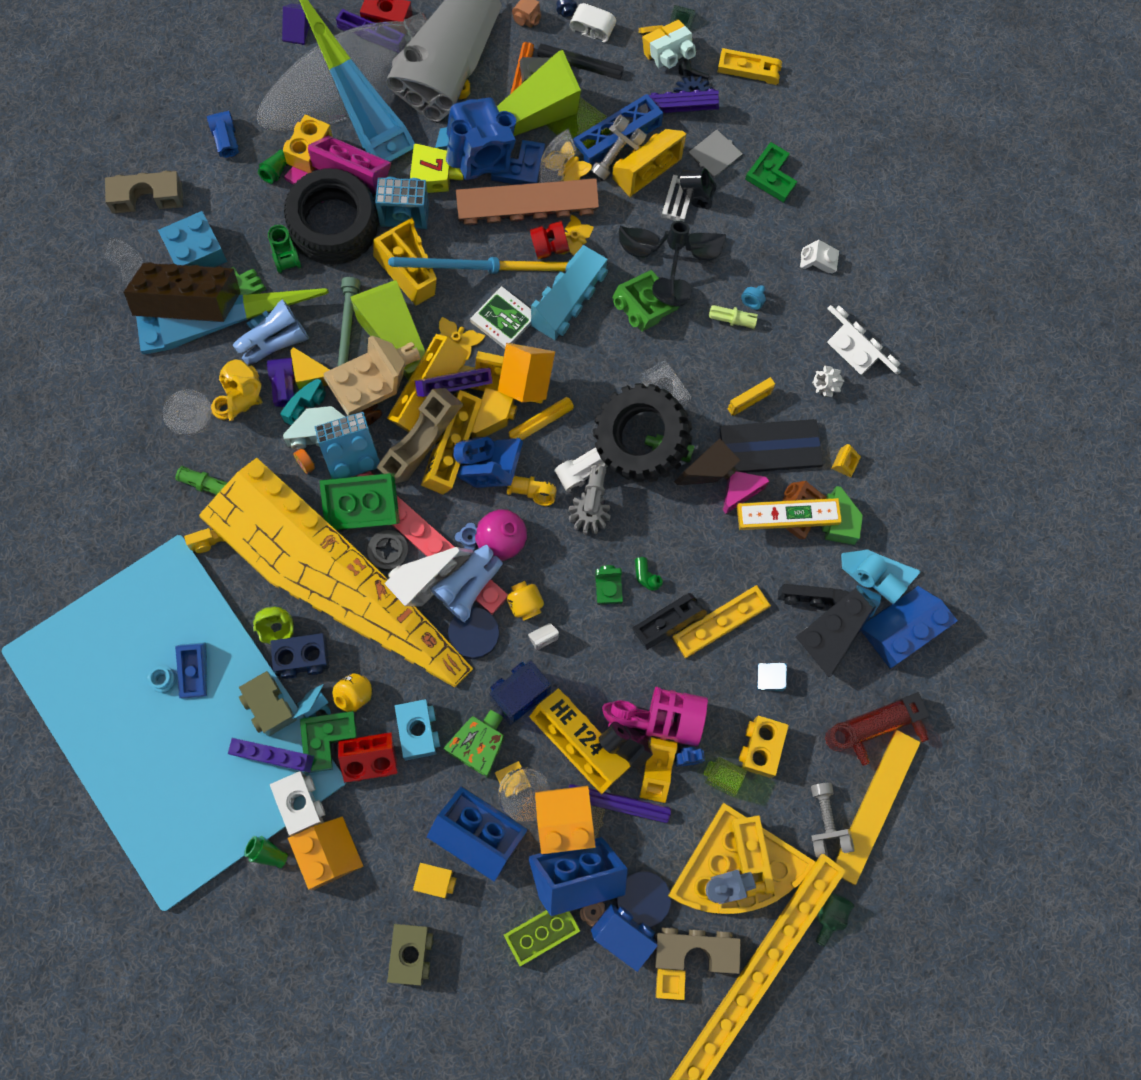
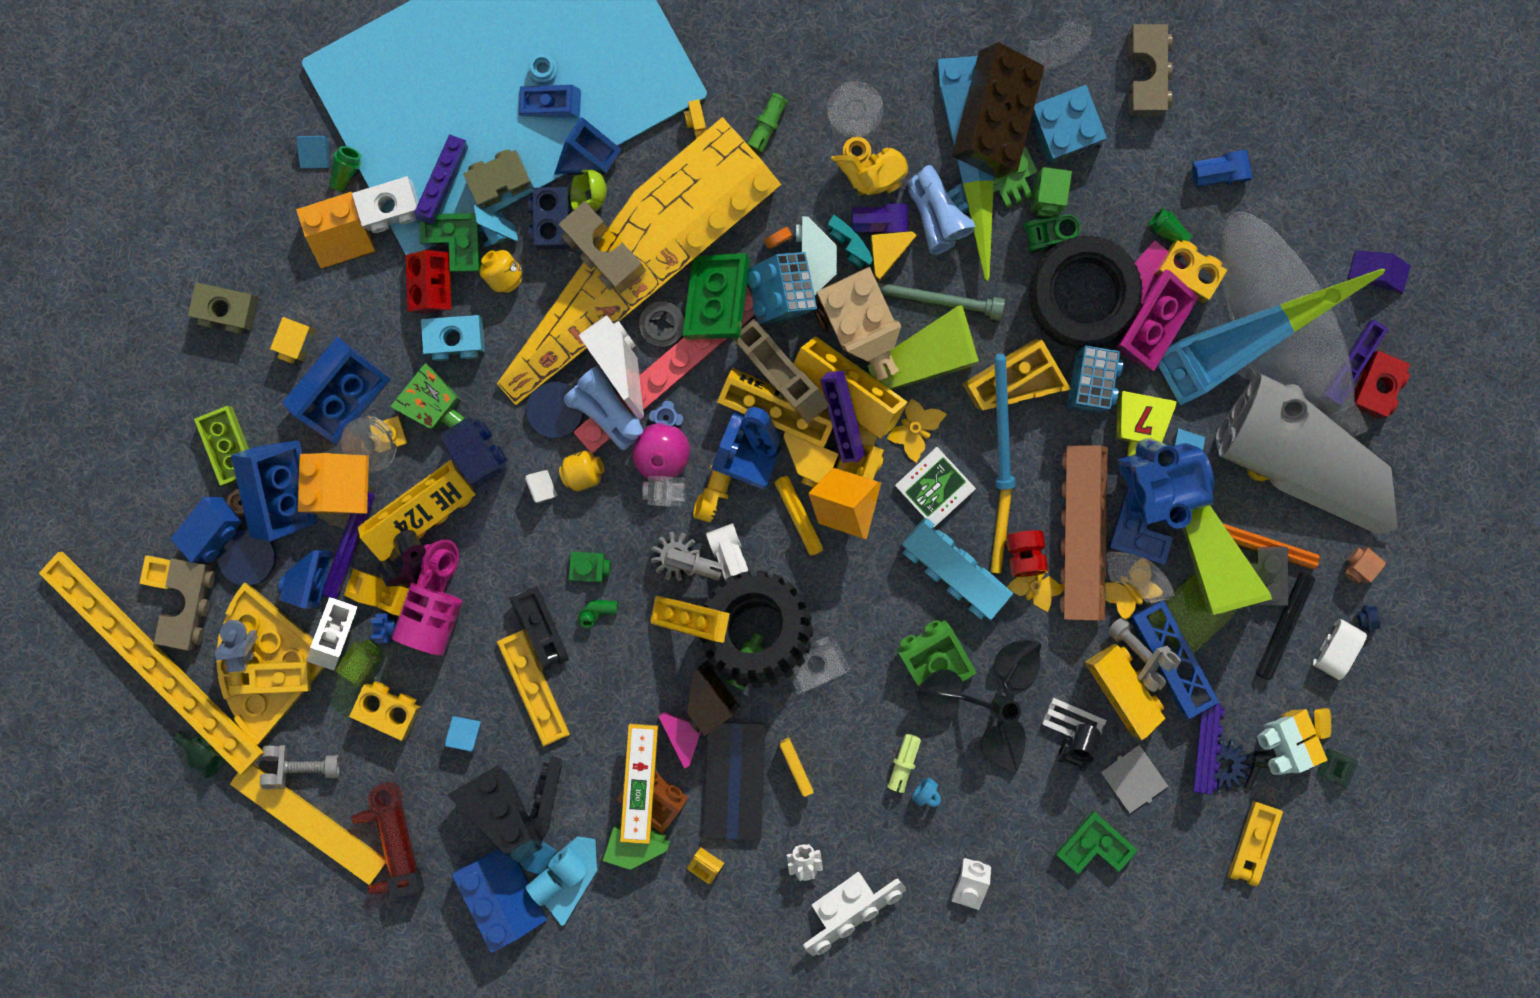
camera: 105 degrees right, 15 degrees up
(235, 628) = (586, 150): none -> blue slope
(250, 248) = (1050, 192): none -> bright green brick
(251, 887) = (313, 152): none -> dark azure slope
(341, 583) = (584, 230): none -> dark tan arch
(535, 522) = (665, 491): none -> clear brick
(642, 484) = (690, 618): none -> yellow tile
(658, 835) = (306, 580): none -> blue slope
(703, 800) = (331, 633): none -> white brick

